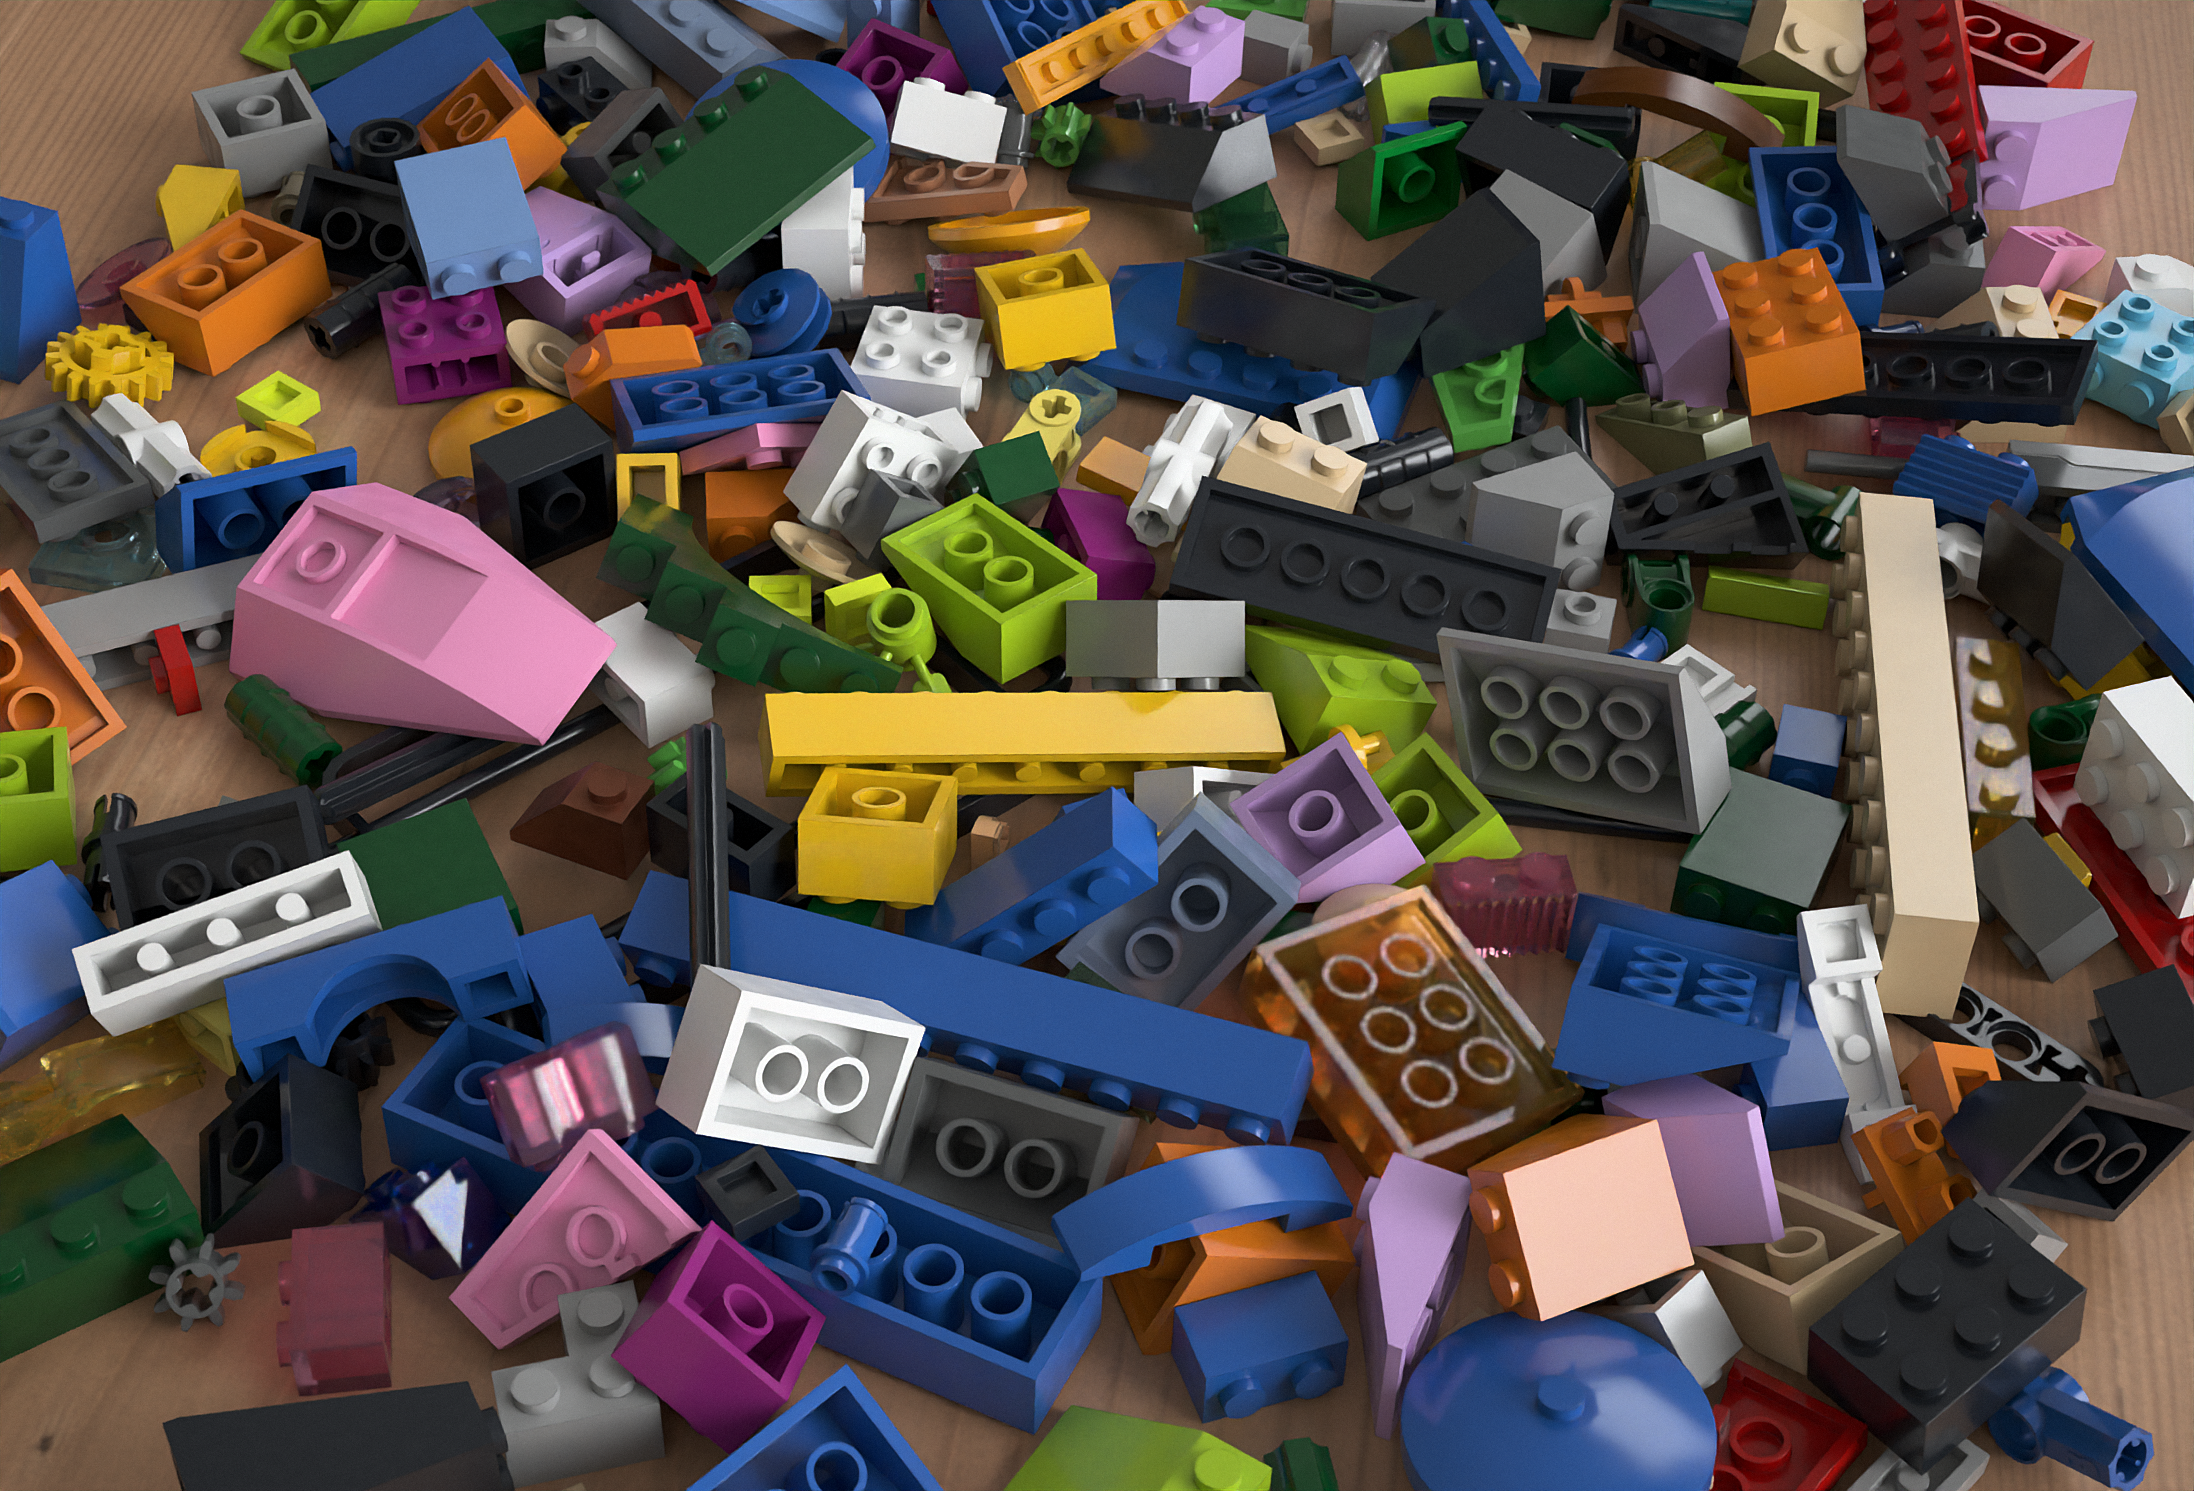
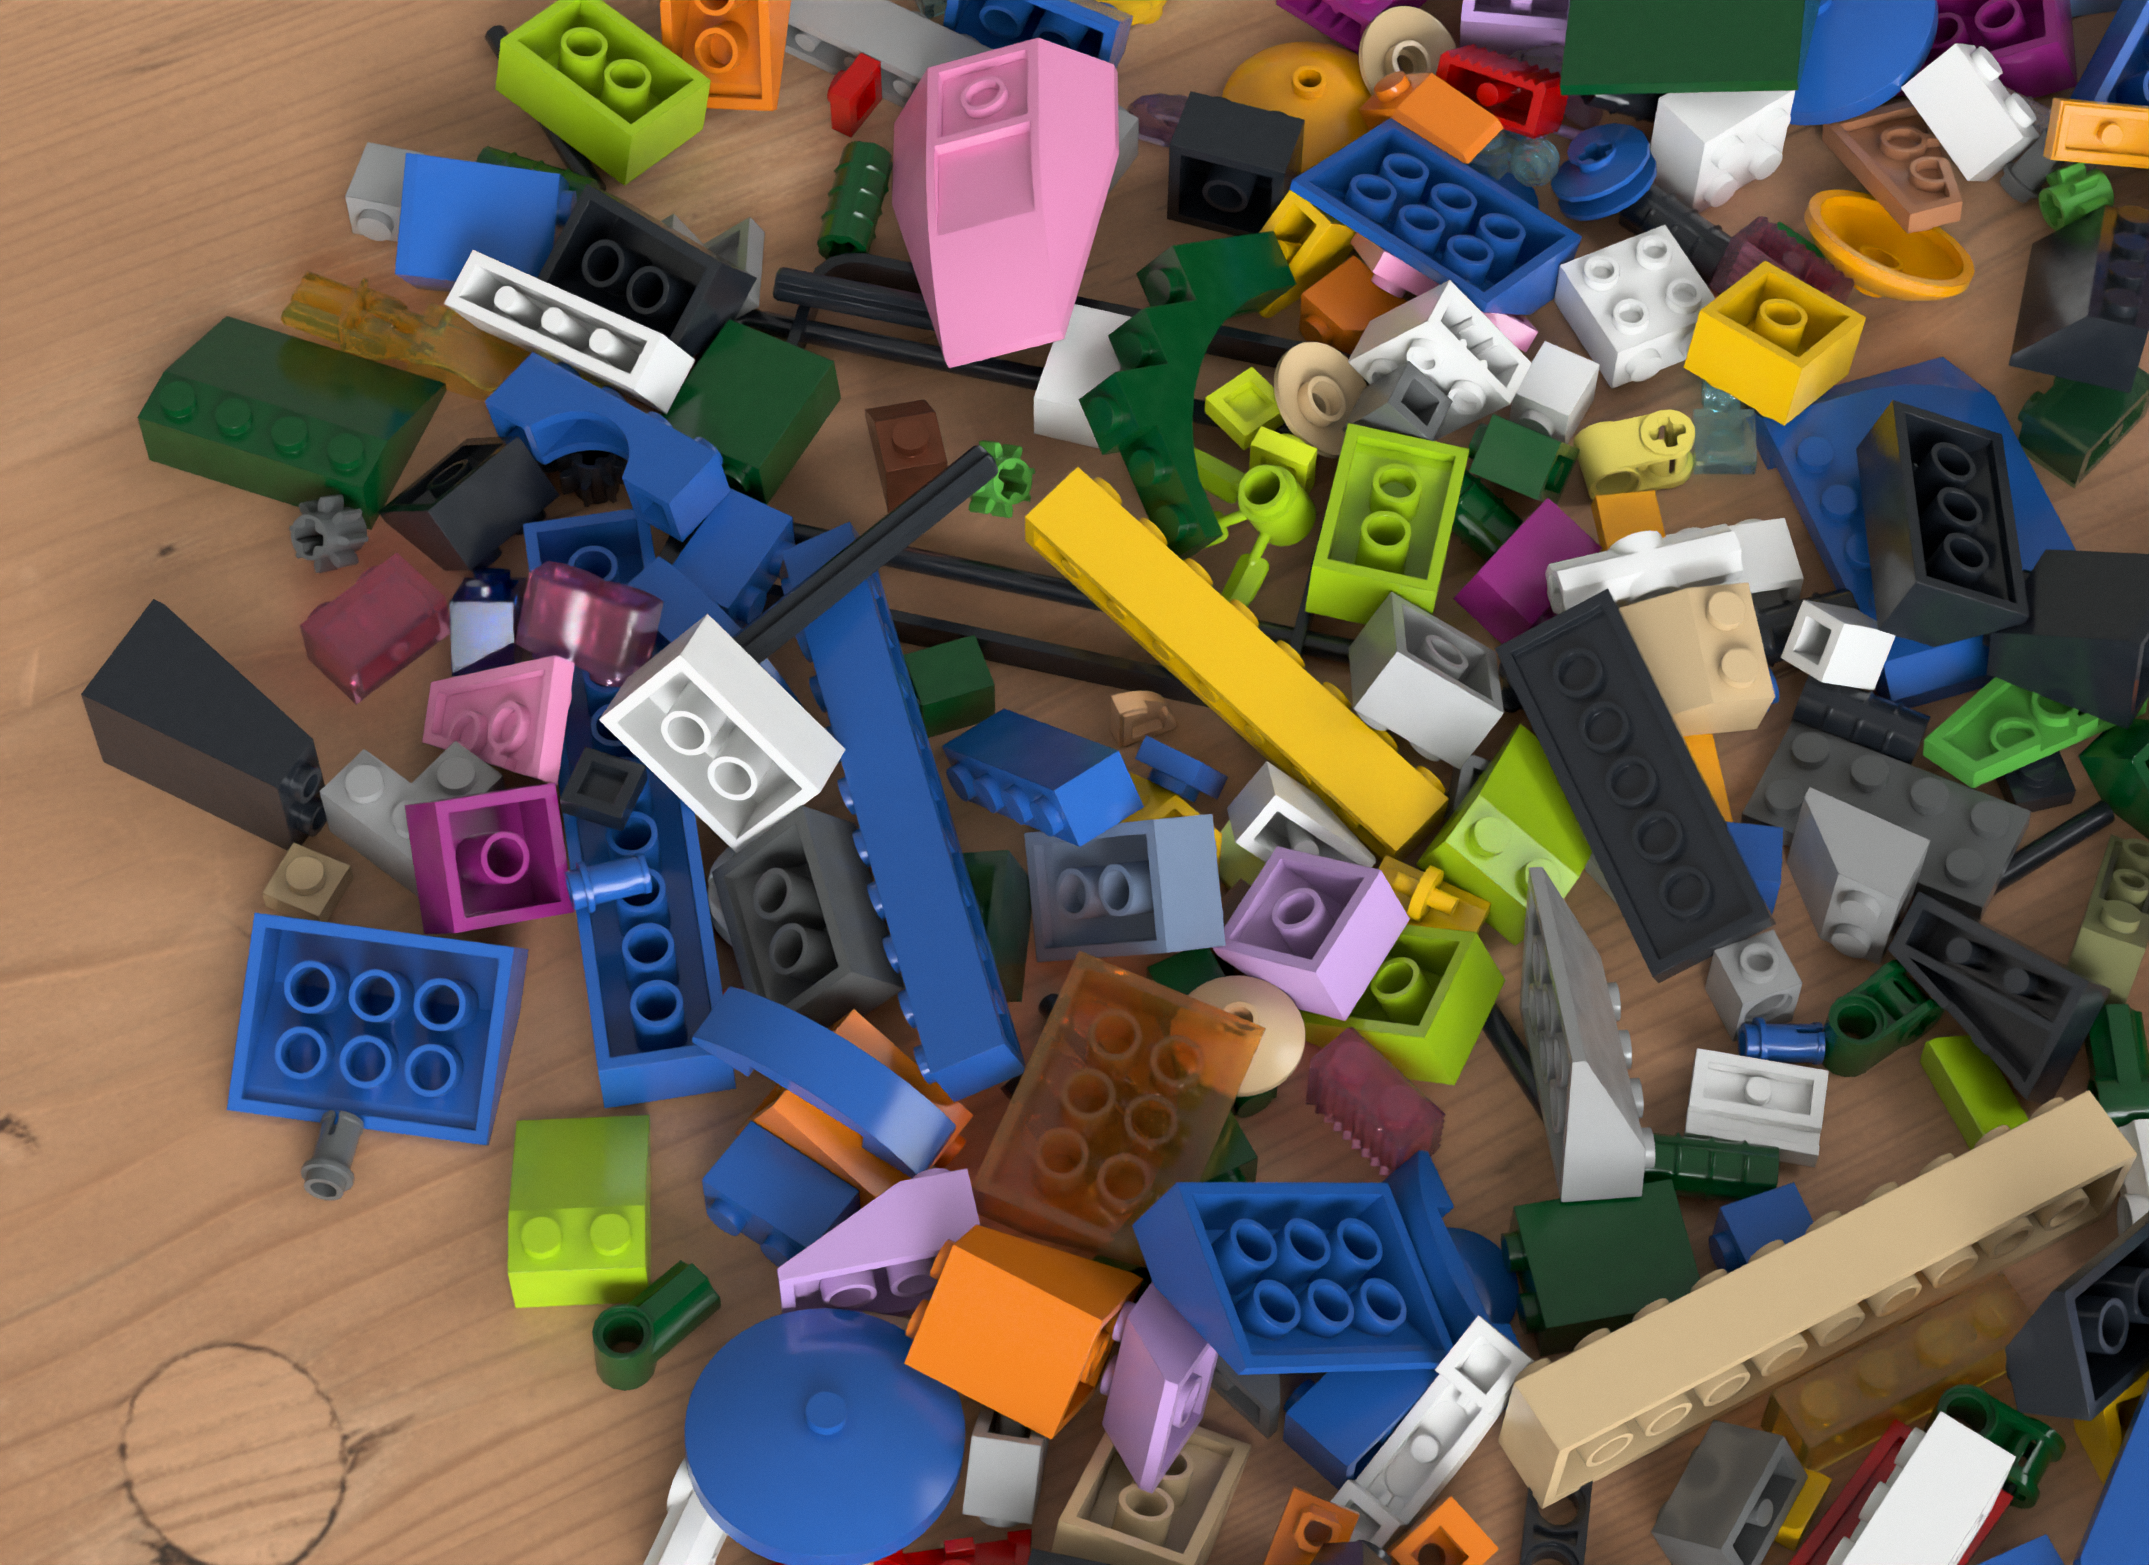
camera: 55 degrees right, 15 degrees up
(121, 816) = (660, 191): black pin -> none
(758, 842) = (940, 565): black brick -> none
(877, 836) = (1027, 638): yellow brick -> none

